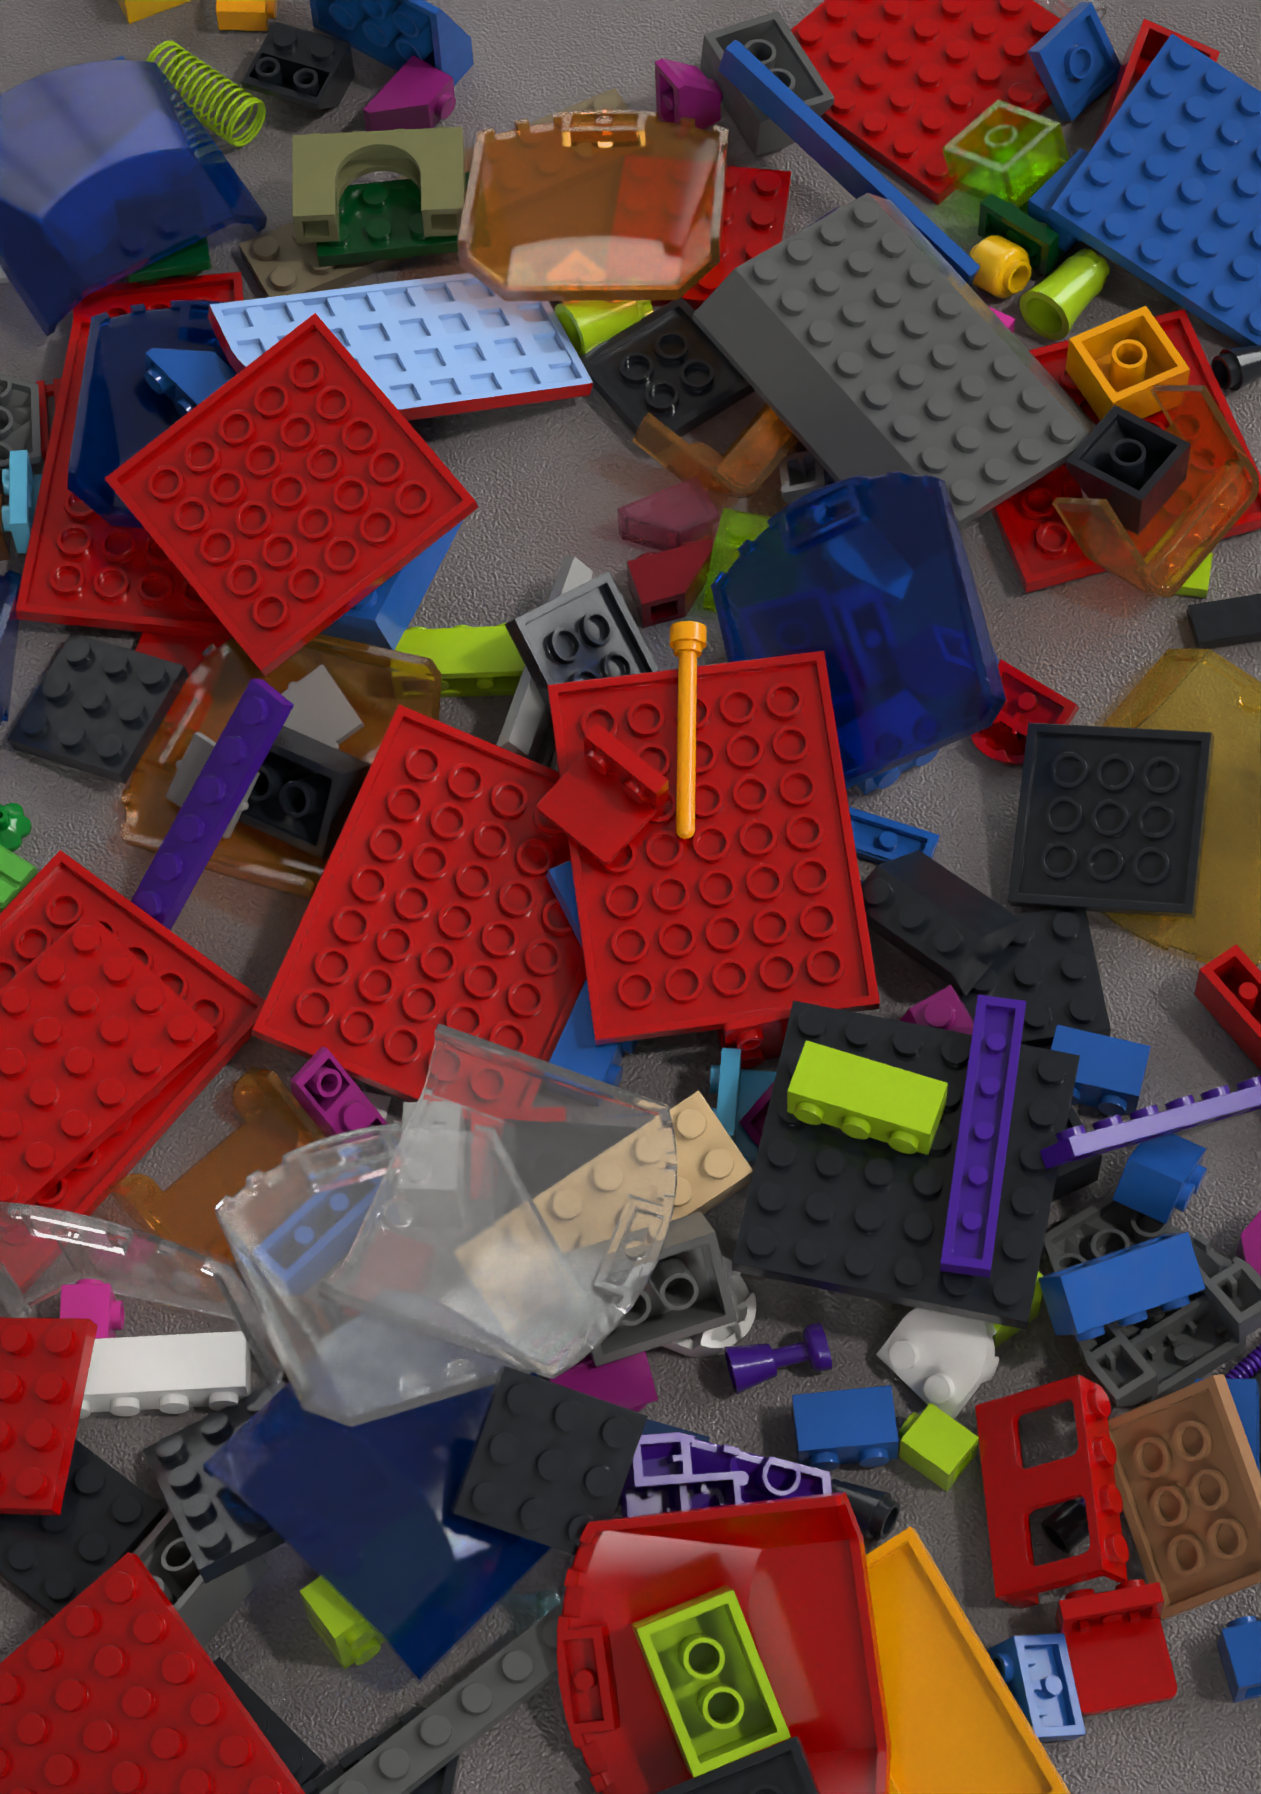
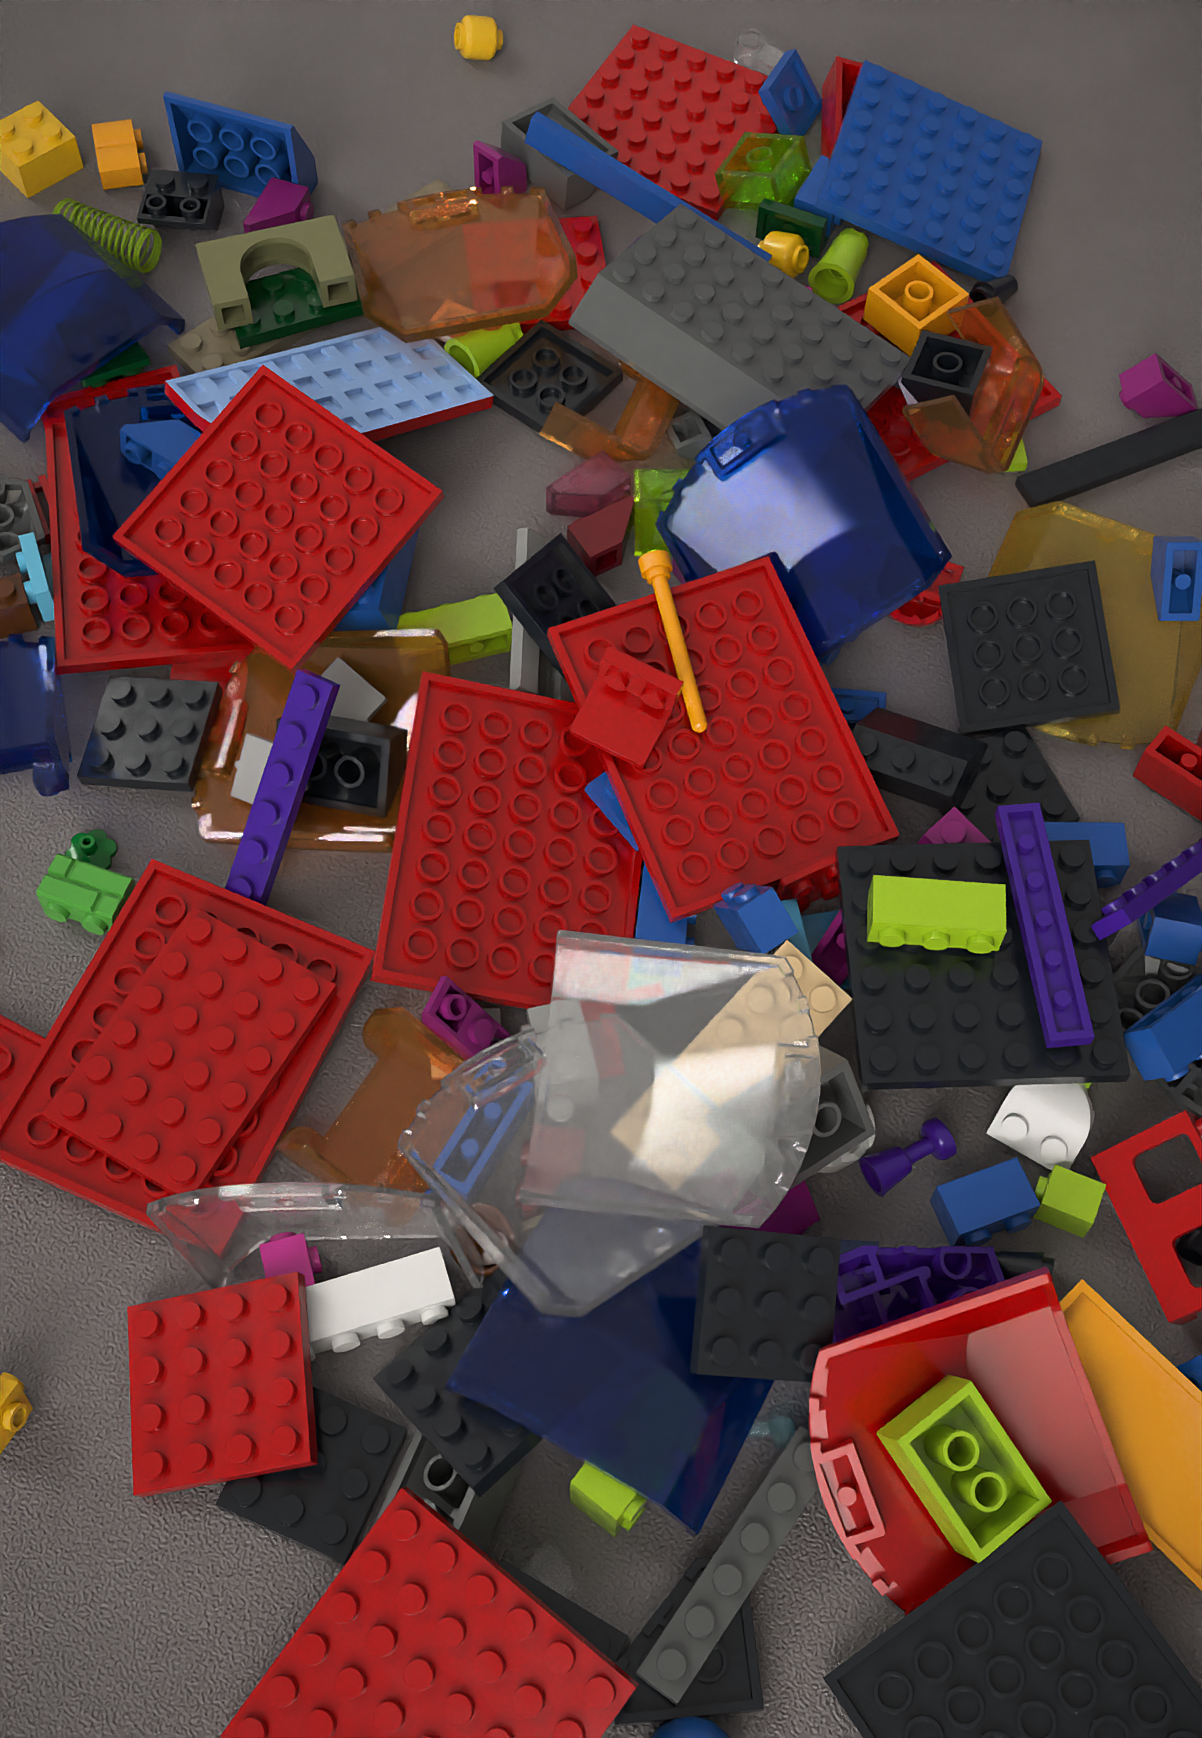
camera: 20 degrees left, 0 degrees up
(678, 1058) = (754, 917): none -> blue brick

